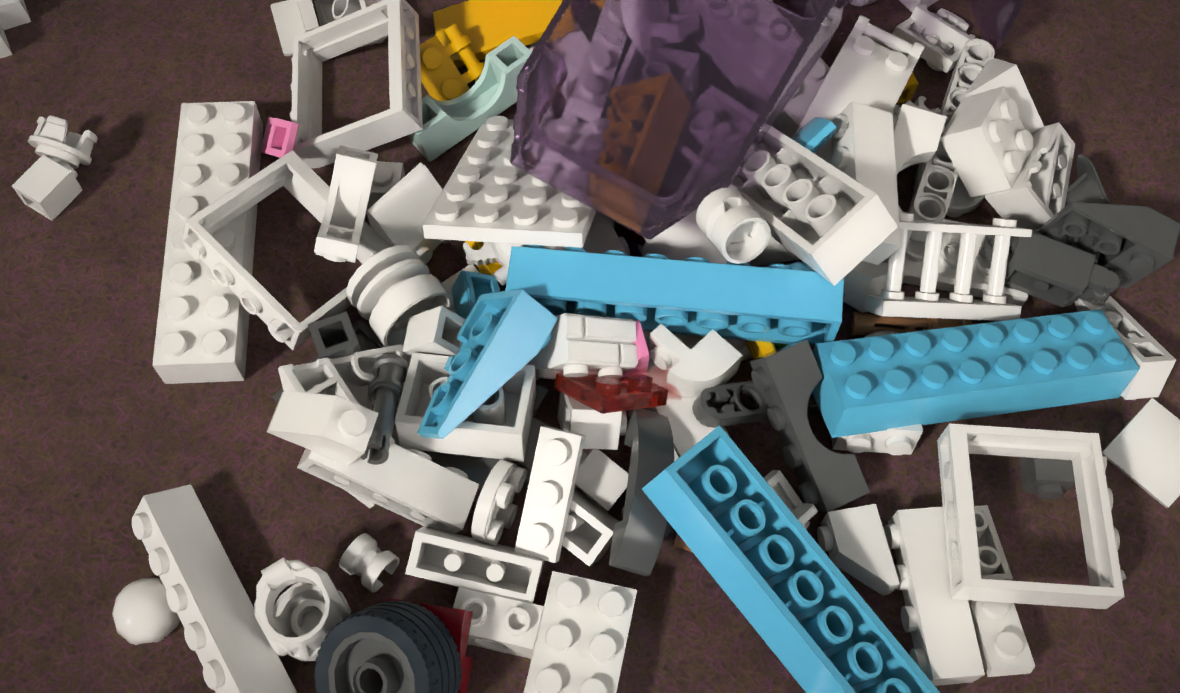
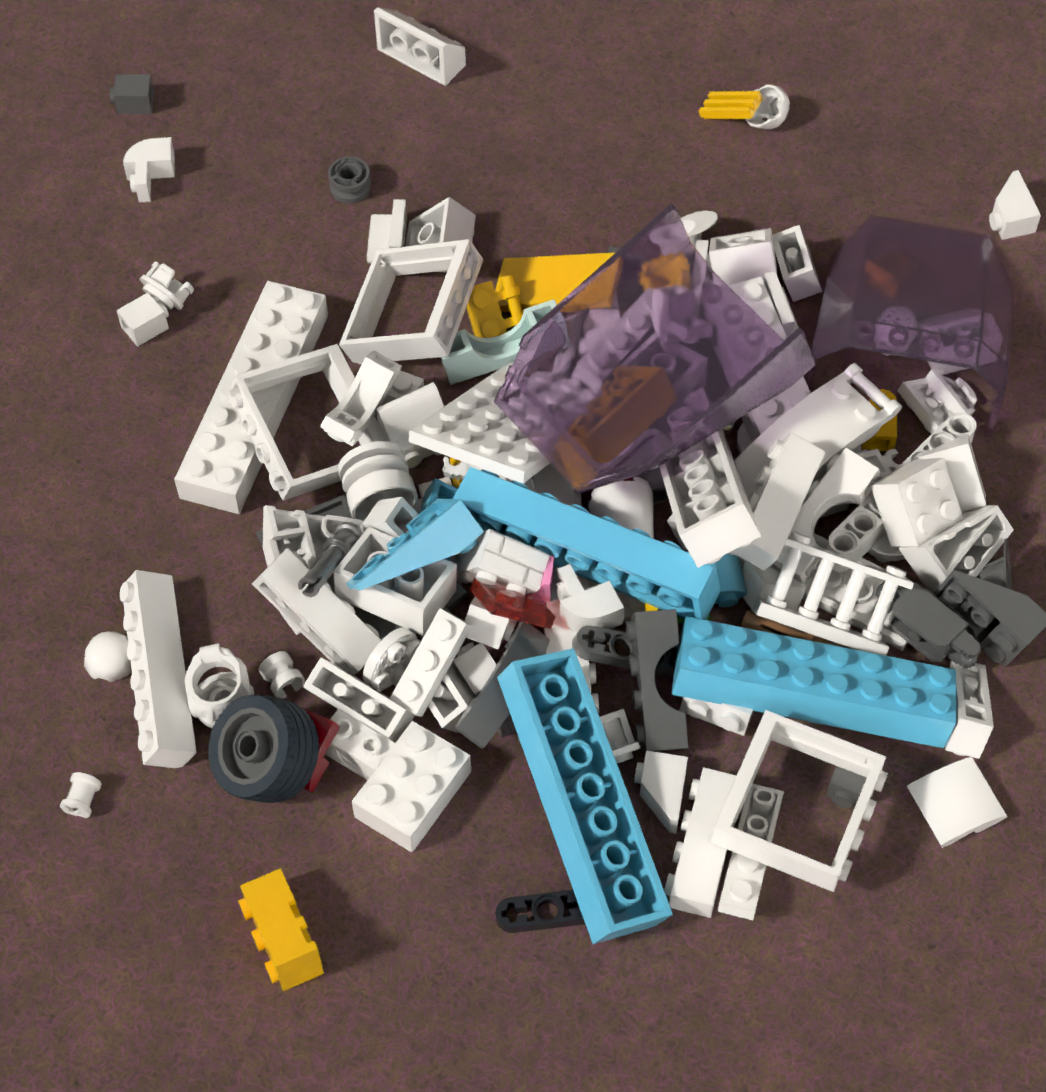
camera: 25 degrees right, 5 degrees down
(279, 137) = (334, 330): bright pink slope -> none
(323, 424) = (278, 553): white slope -> none
(334, 337) = (316, 498): dark grey brick -> none
(733, 225) = (644, 500): white wheel -> none
(815, 134) = (747, 453): medium azure slope -> none

